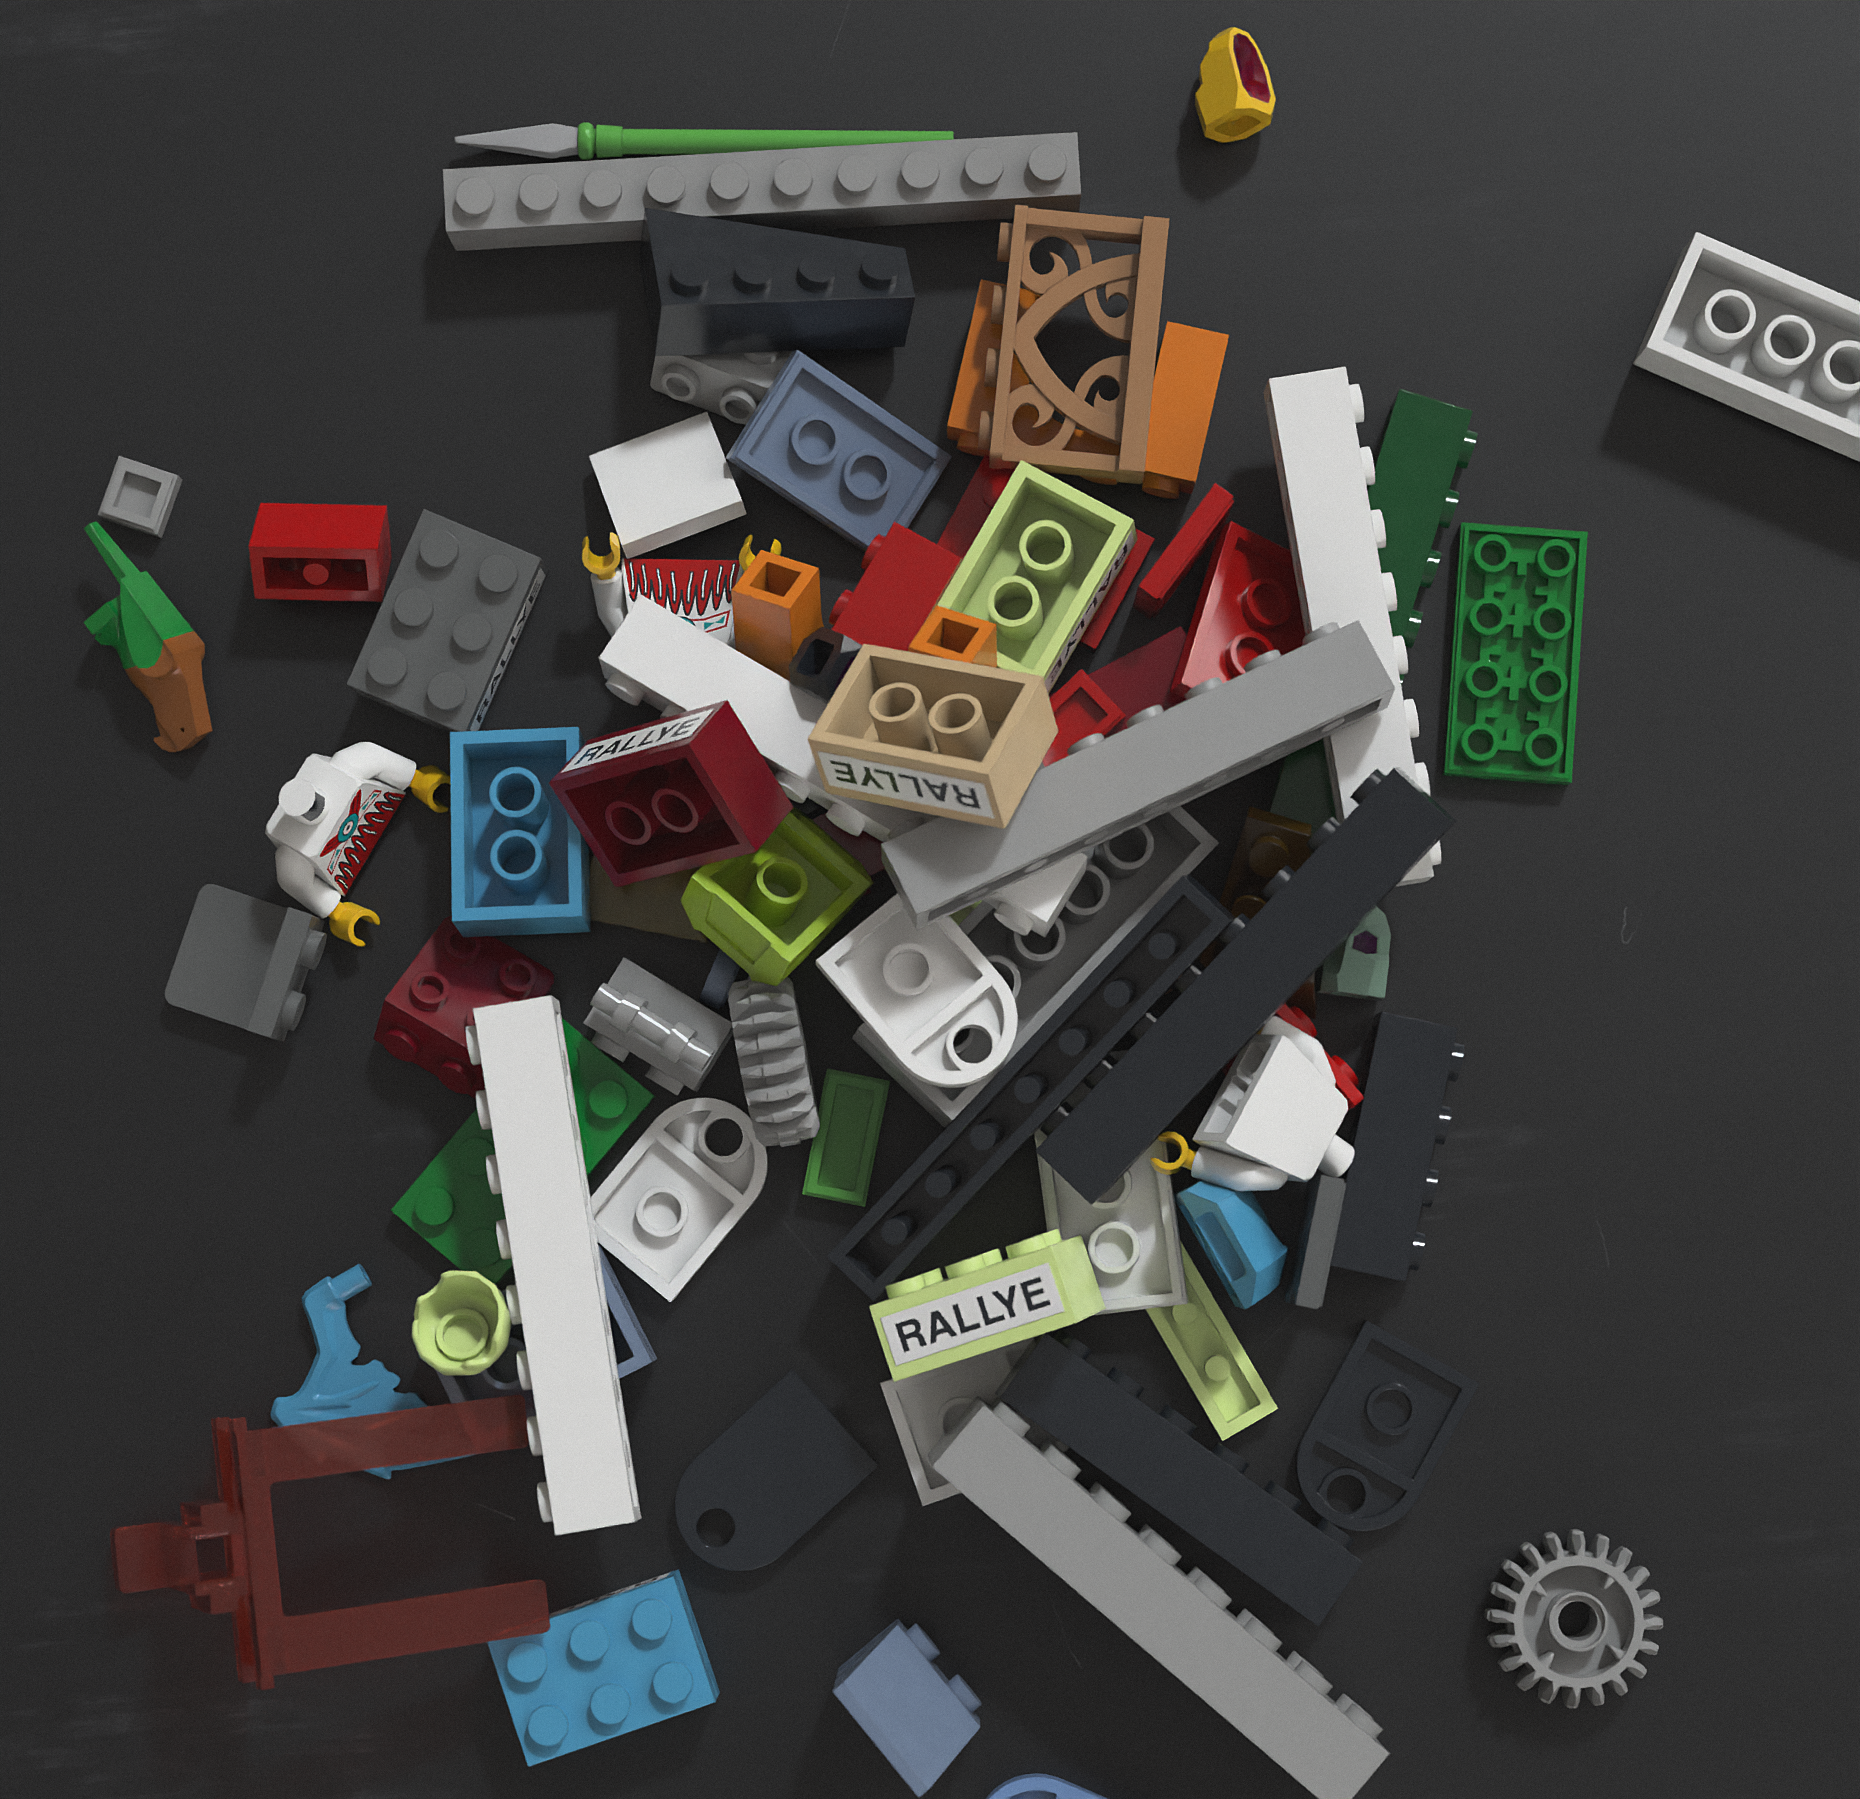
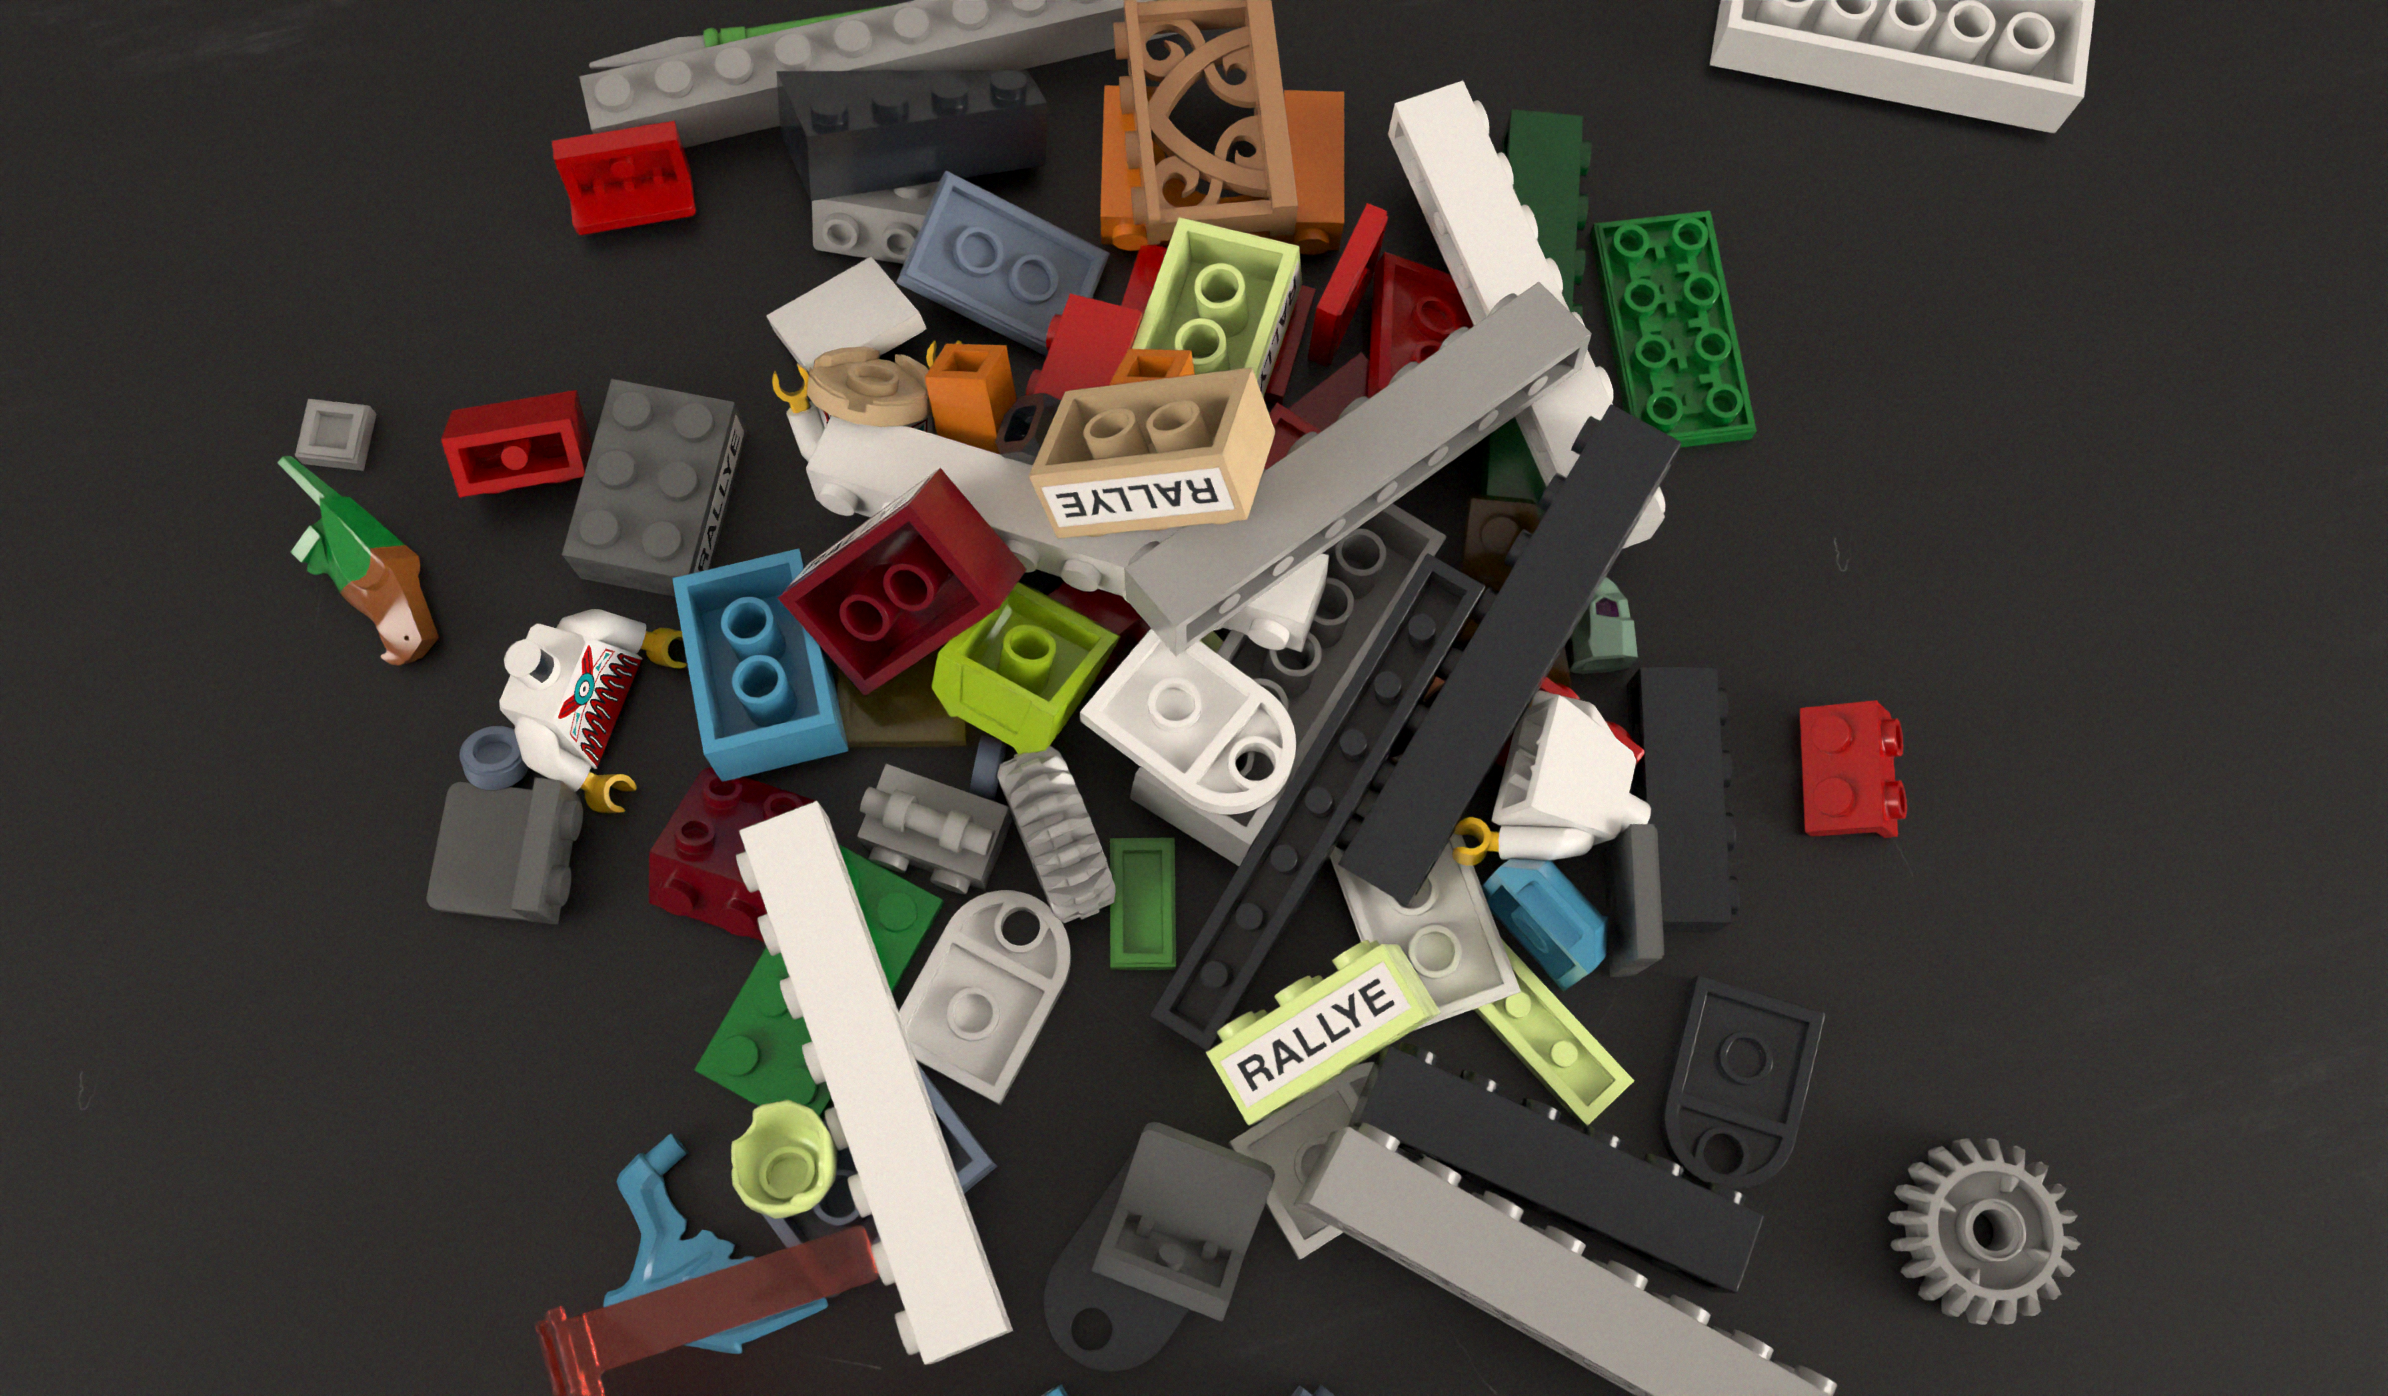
camera: 20 degrees left, 10 degrees down
(247, 866) = (492, 758): none -> sand blue tile
(472, 283) = (625, 177): none -> red bracket
(677, 579) = (869, 390): none -> tan tile
(818, 1452) = (1184, 1219): none -> dark grey bracket
(1572, 1151) = (1851, 769): none -> red bracket

